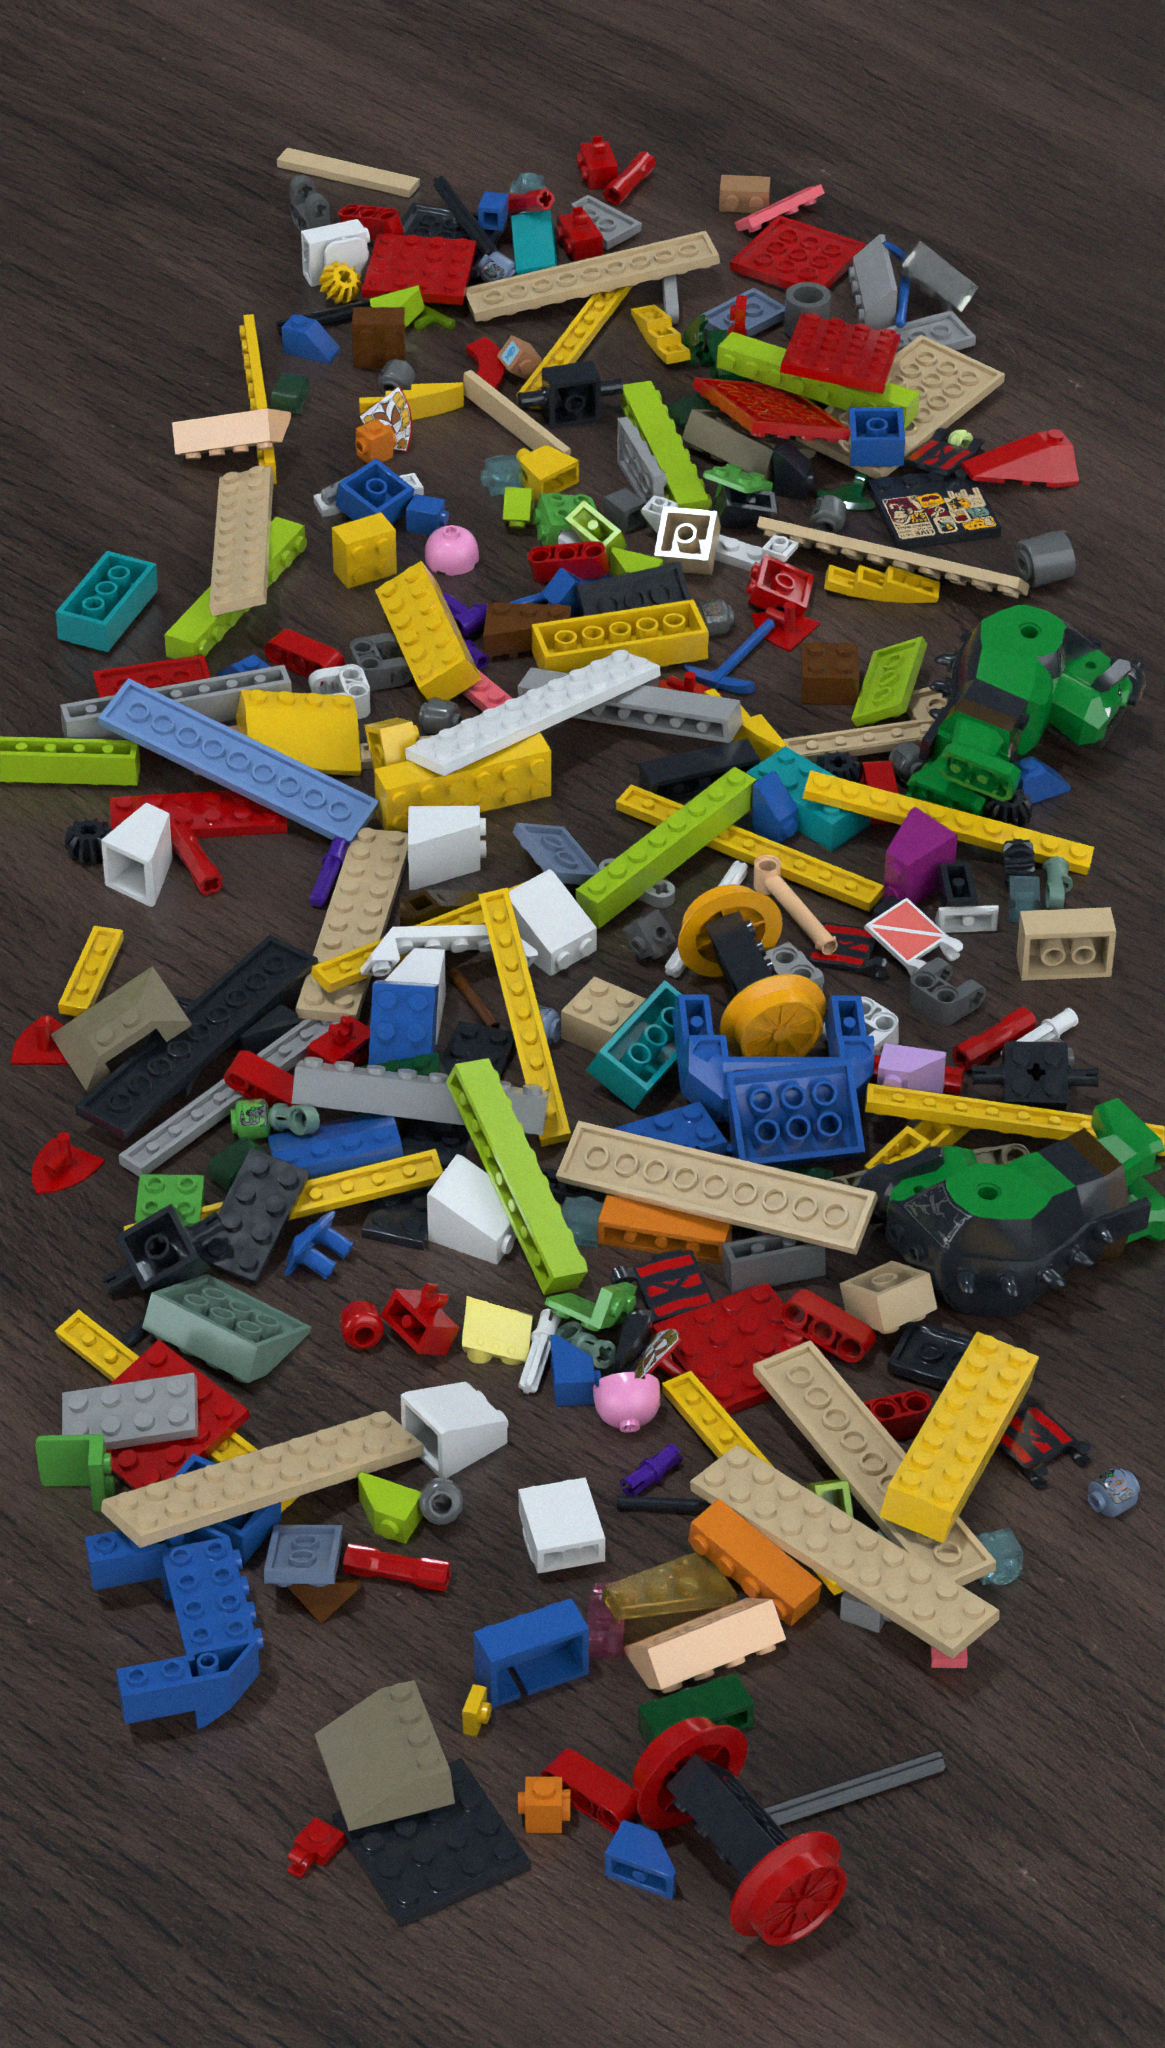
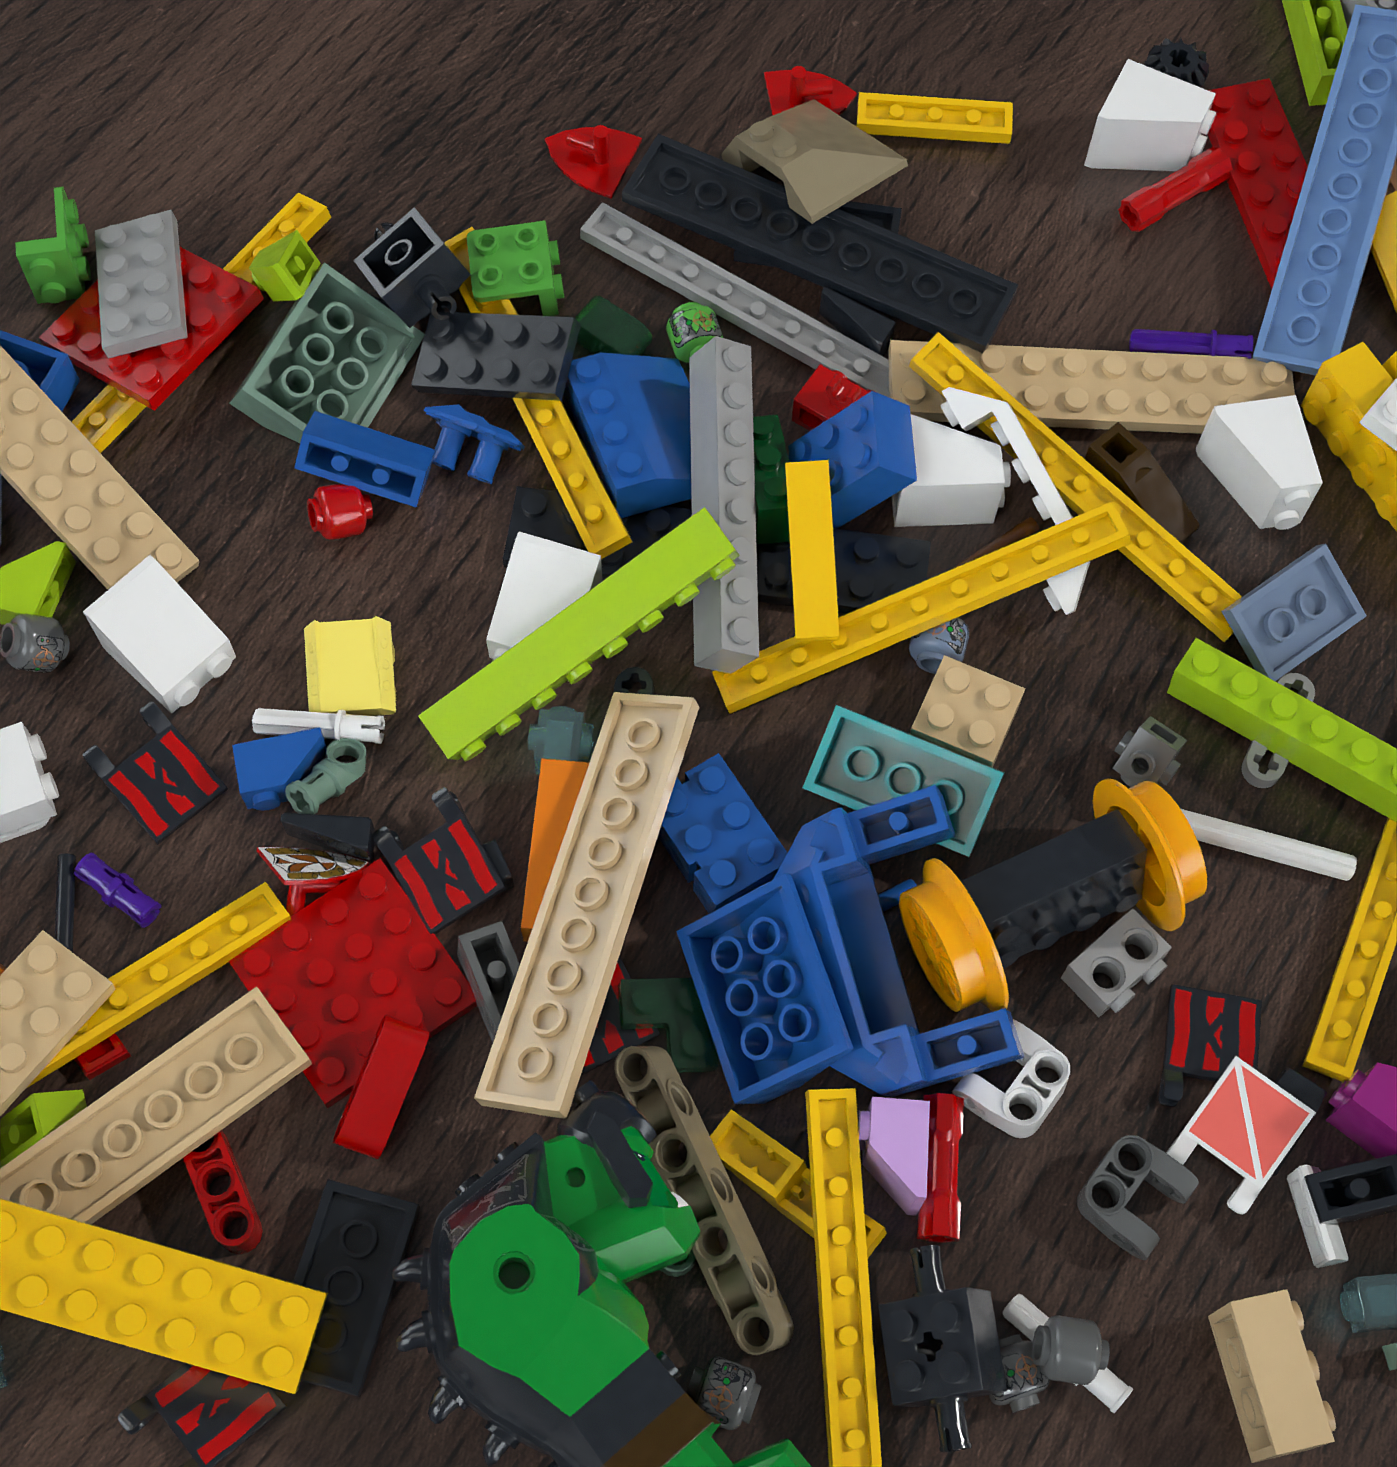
camera: 80 degrees right, 25 degrees up
(149, 1319) = (285, 268): none -> lime slope
(259, 1079) = (748, 317): red beam -> none
(299, 1118) = (673, 373): sand green connector -> none
(327, 1295) = (364, 458): none -> blue brick
(420, 1320) = (342, 575): red brick -> none
(461, 1046) = (812, 551): none -> yellow slope
(552, 922) = (1135, 619): white slope -> none
(562, 1445) = (162, 780): none -> flag
(609, 1310) = (383, 770): bright green bracket -> none
(627, 1400) = (218, 841): bright pink cylinder -> none
(769, 881) = (1275, 949): light nougat piece -> none
(889, 1296) = (429, 1159): tan brick -> none
(979, 1047) = (1017, 1256): red axle -> none
(1042, 1019) = (1070, 1350): none -> dark grey head

